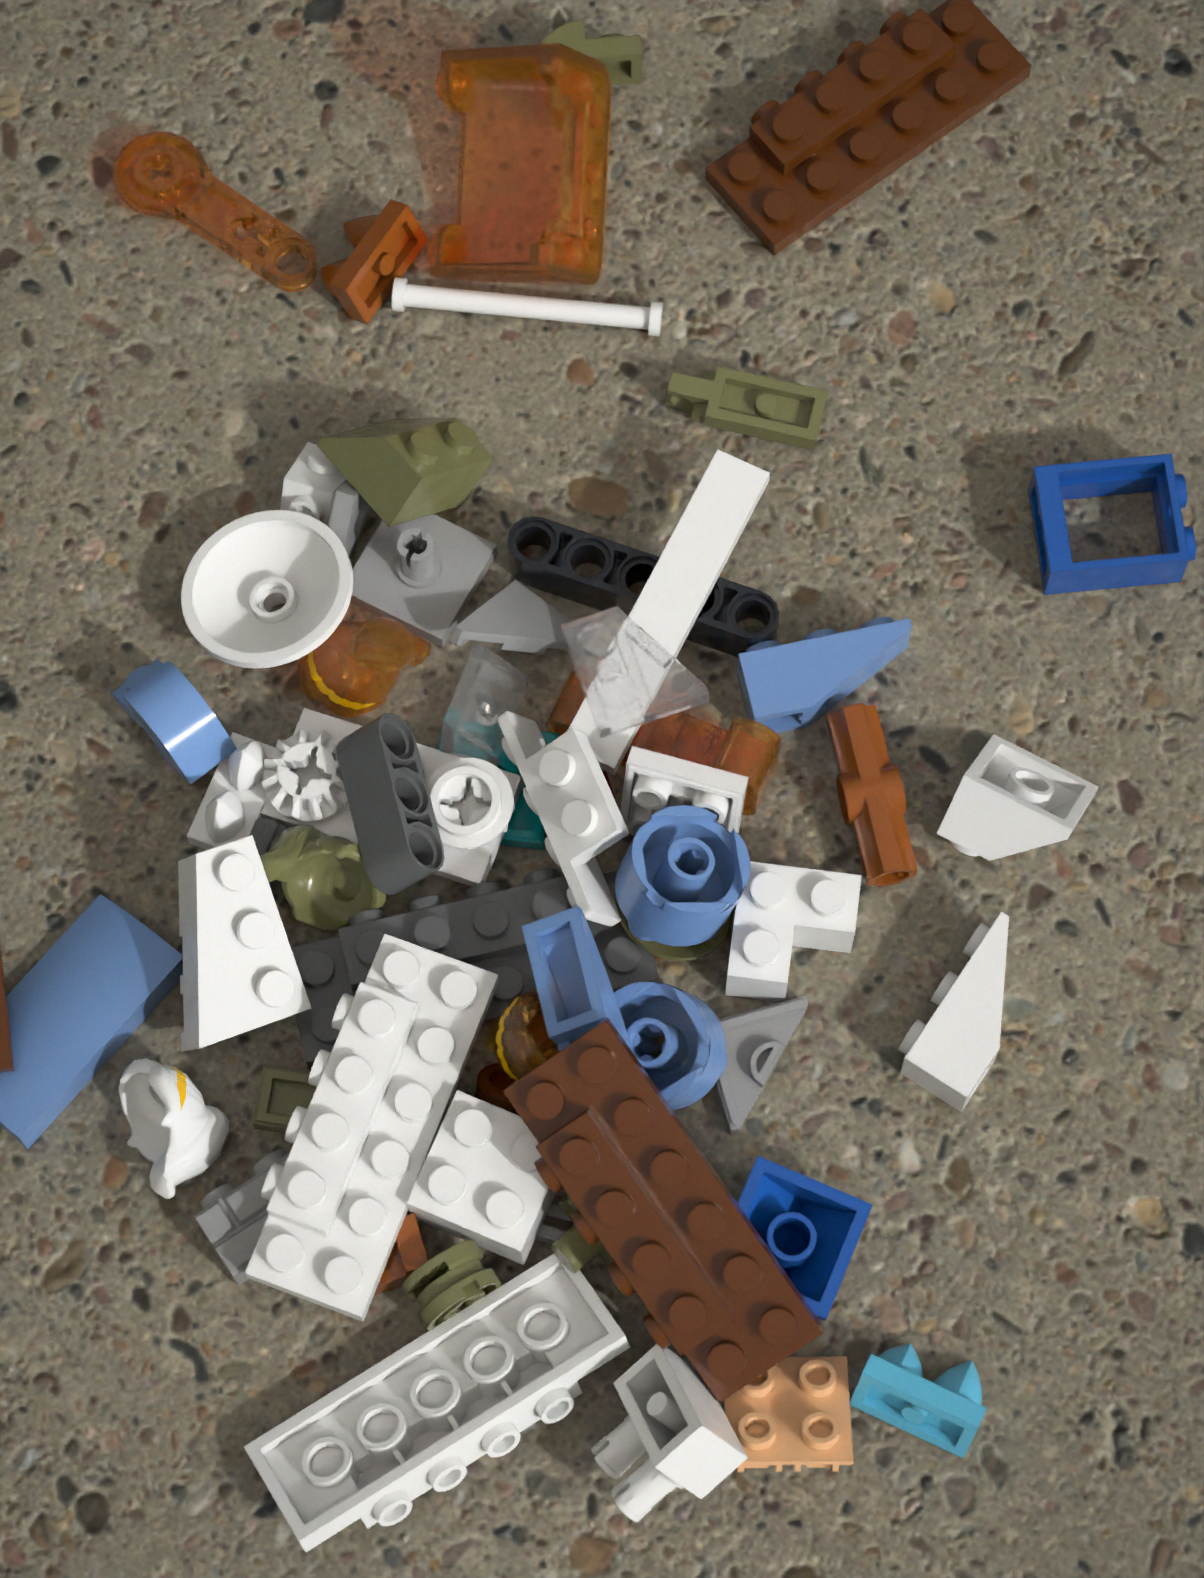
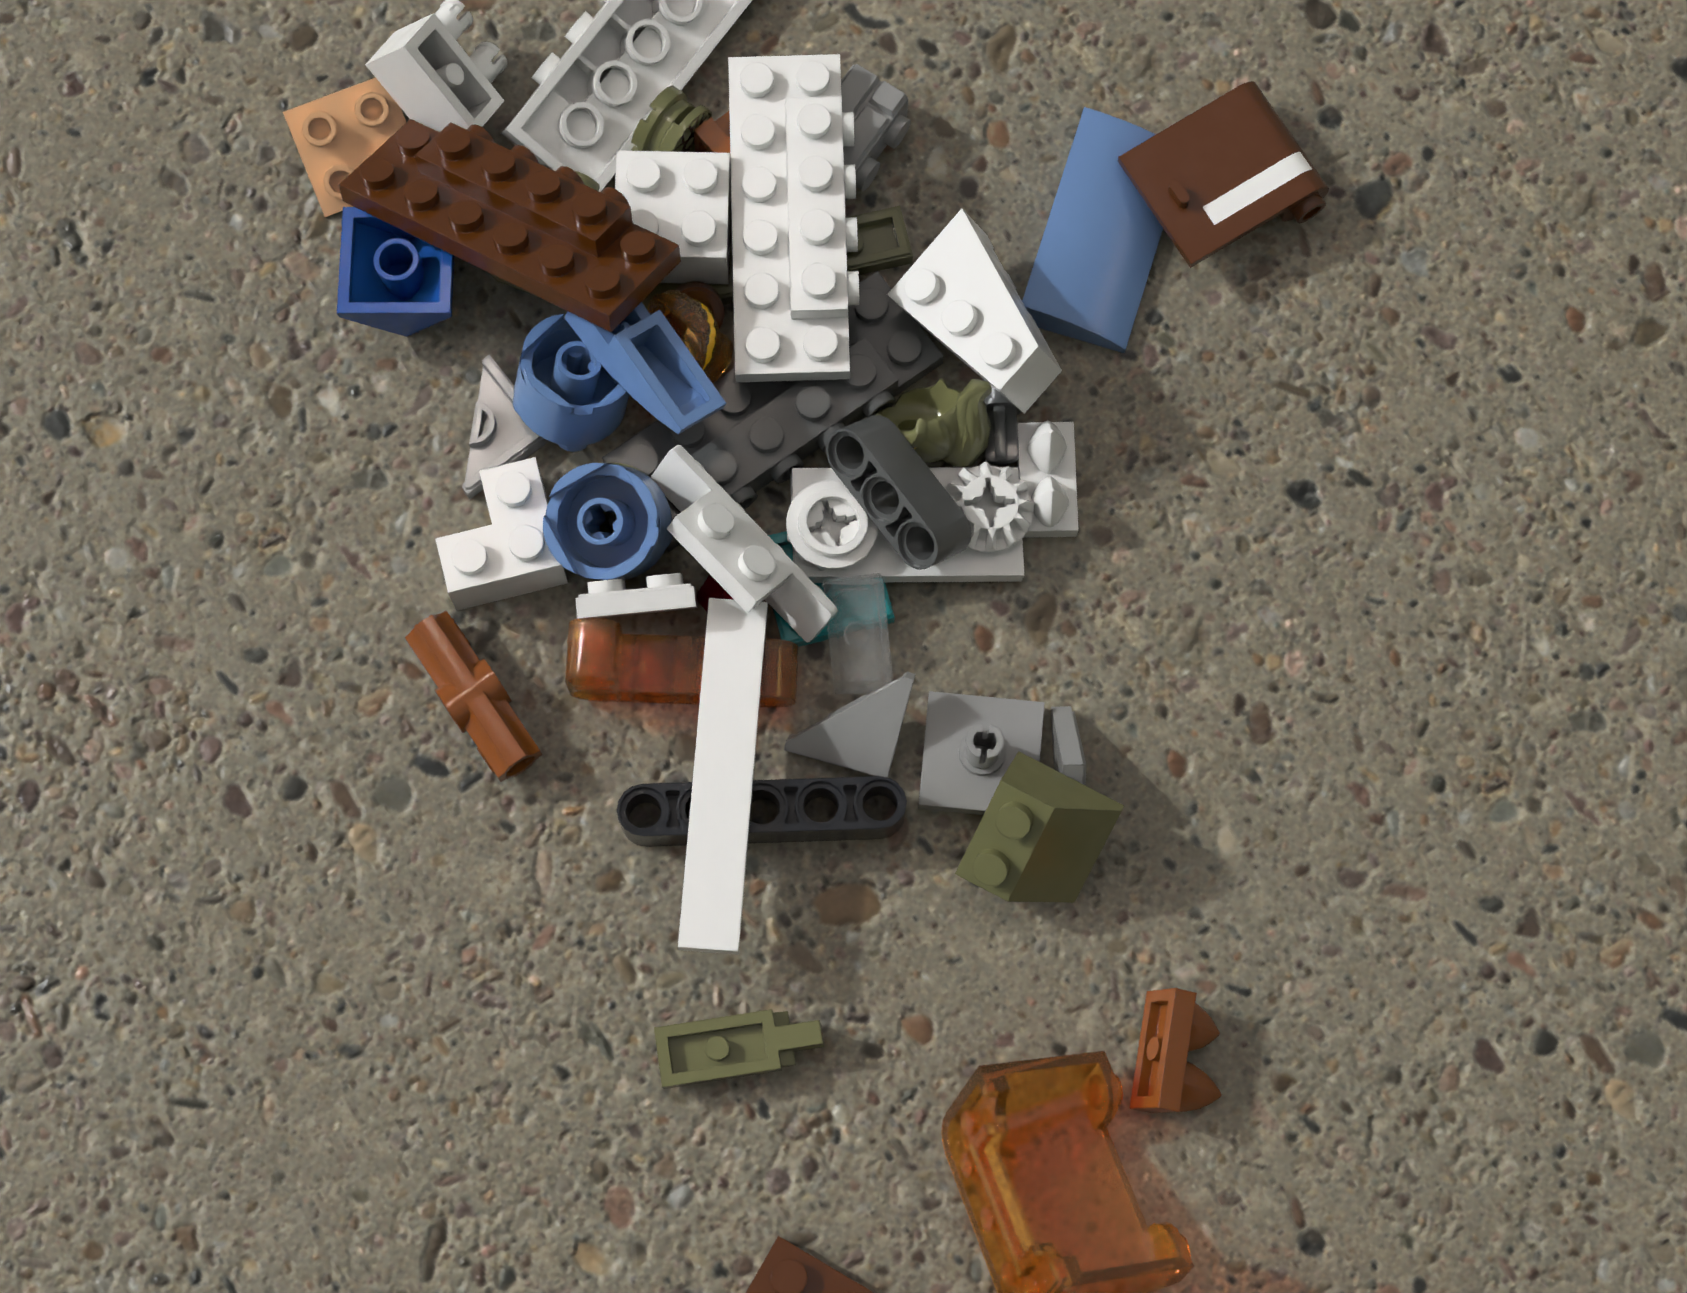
camera: 155 degrees right, 5 degrees up
(170, 1123) = (961, 171): white hair -> none
(175, 719) = (1137, 509): medium blue brick -> none
(207, 206) = (1370, 1050): clear orange beam -> none
(251, 569) = (1134, 638): white dish -> none
(311, 484) = (1121, 779): white bracket -> none
(360, 665) = (995, 637): clear orange hair -> none
(526, 306) = (953, 1081): white bar -> none
(627, 672) = (732, 684): clear wing -> none
(804, 679) = (575, 779): medium blue slope -> none
(937, 1412) = (222, 204): medium azure tile -> none
(965, 1031) = (314, 508): white slope -> none
(1013, 803) = (333, 737): white slope -> none
(1100, 478) = (265, 1062): blue window -> none

